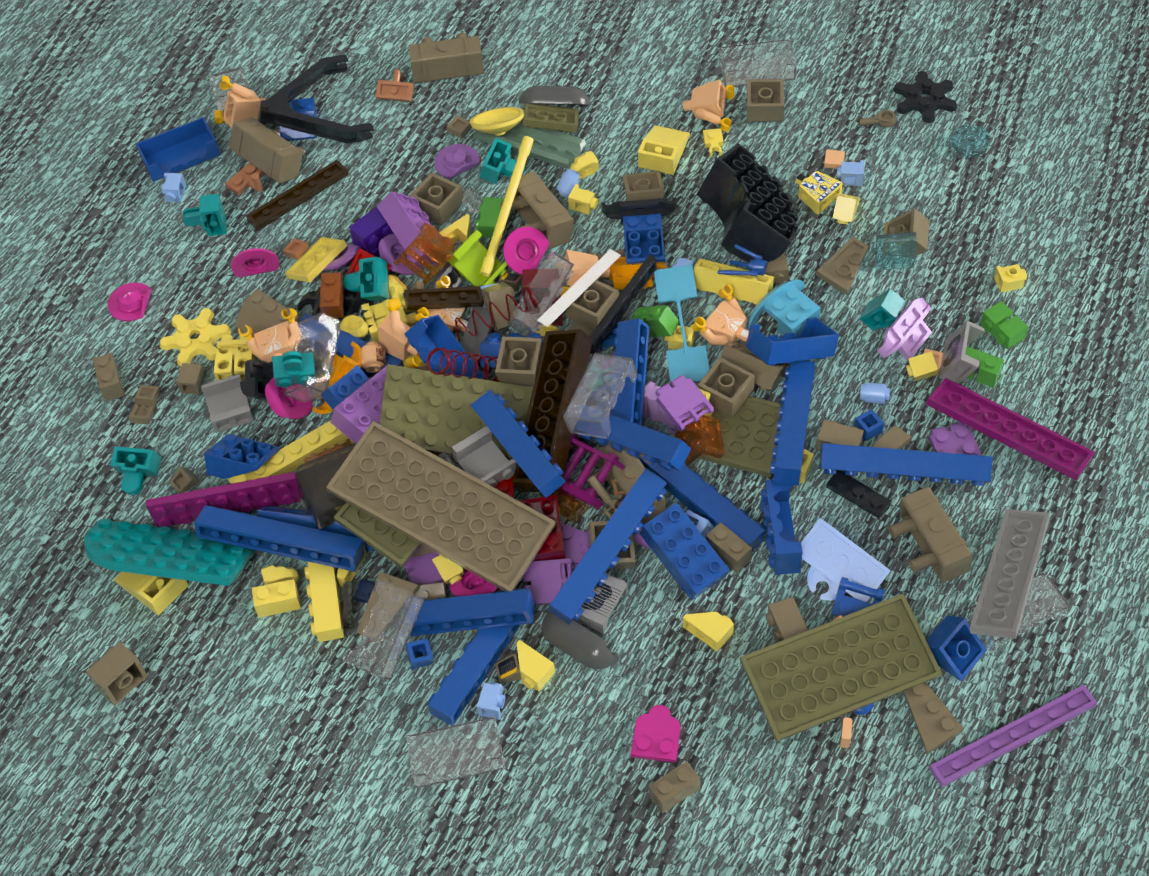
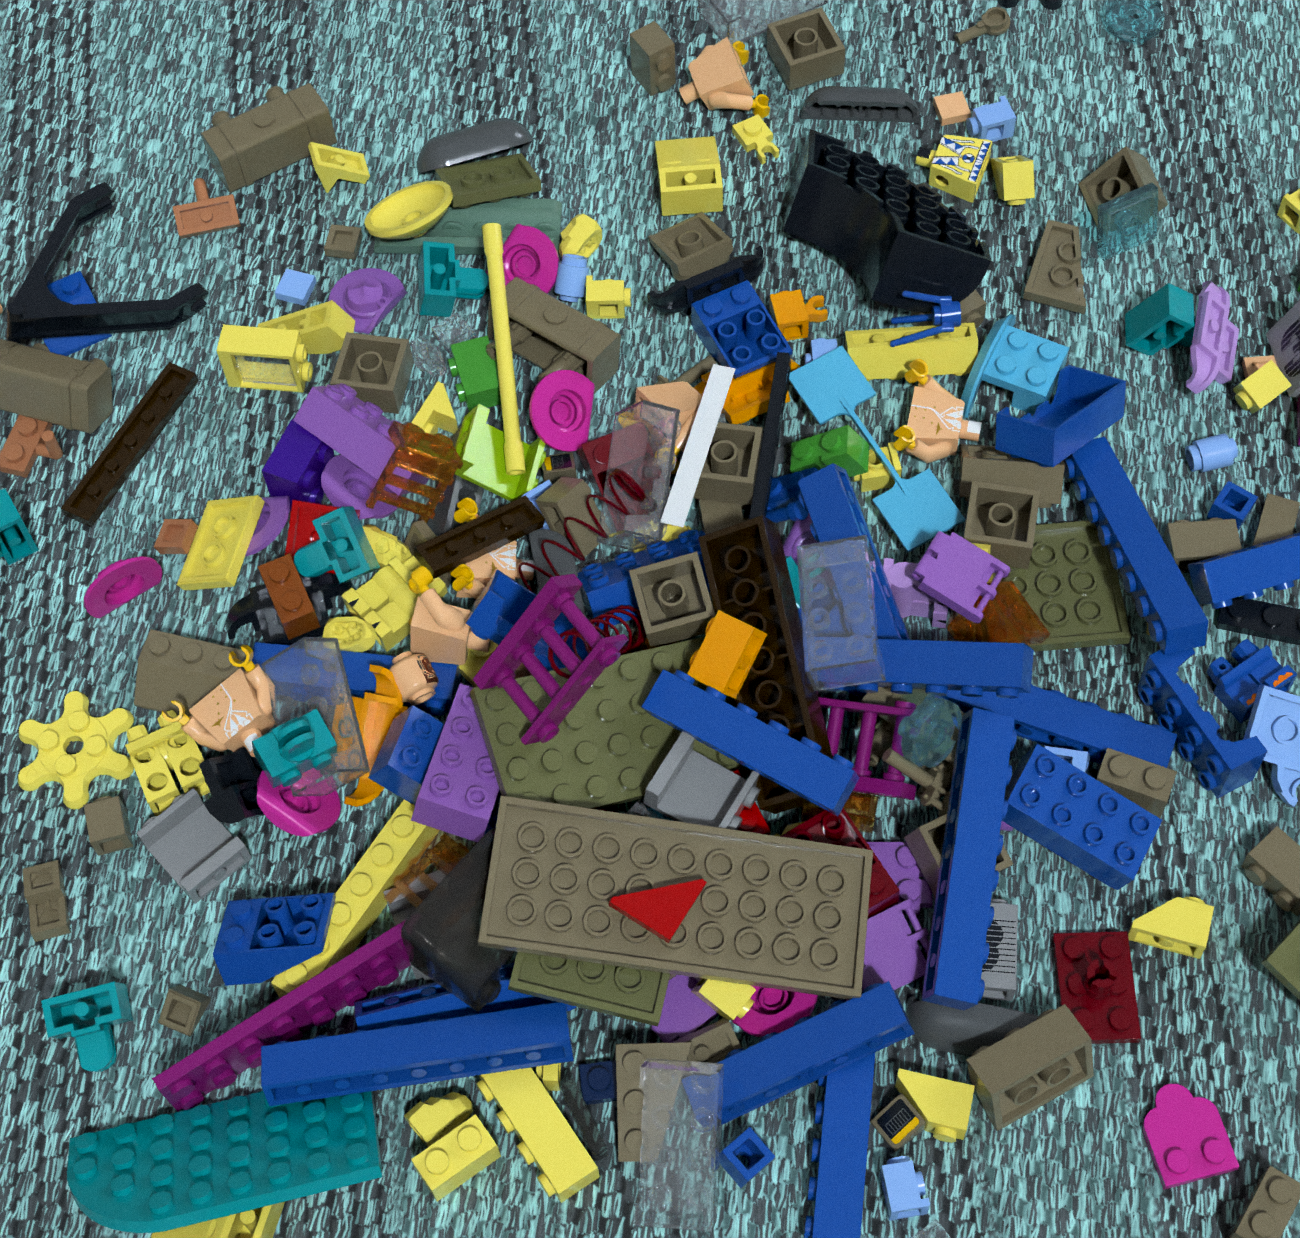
camera: 25 degrees left, 5 degrees up
(383, 172) = (264, 358): none -> light yellow window
(412, 352) = (519, 648): none -> magenta fence
(414, 166) = (319, 326): none -> light yellow slope
(422, 142) = (295, 287): none -> light blue tile
(427, 506) = (660, 908): none -> red tile
(473, 83) = (336, 164): none -> light yellow slope
(492, 190) = (452, 331): none -> clear plate
(529, 395) = (726, 654): none -> light orange brick
(548, 166) = (530, 257): none -> dark pink hat
(588, 666) = (1031, 1066): none -> dark tan slope
(614, 464) = (929, 731): none -> clear light blue plate
(651, 644) = (1098, 984): none -> dark red plate
(674, 79) = (653, 58): none -> dark tan brick
(679, 241) = (793, 315): none -> light orange brick
(782, 141) = (860, 105): none -> dark grey brick
(832, 513) = (1239, 685): none -> blue hips

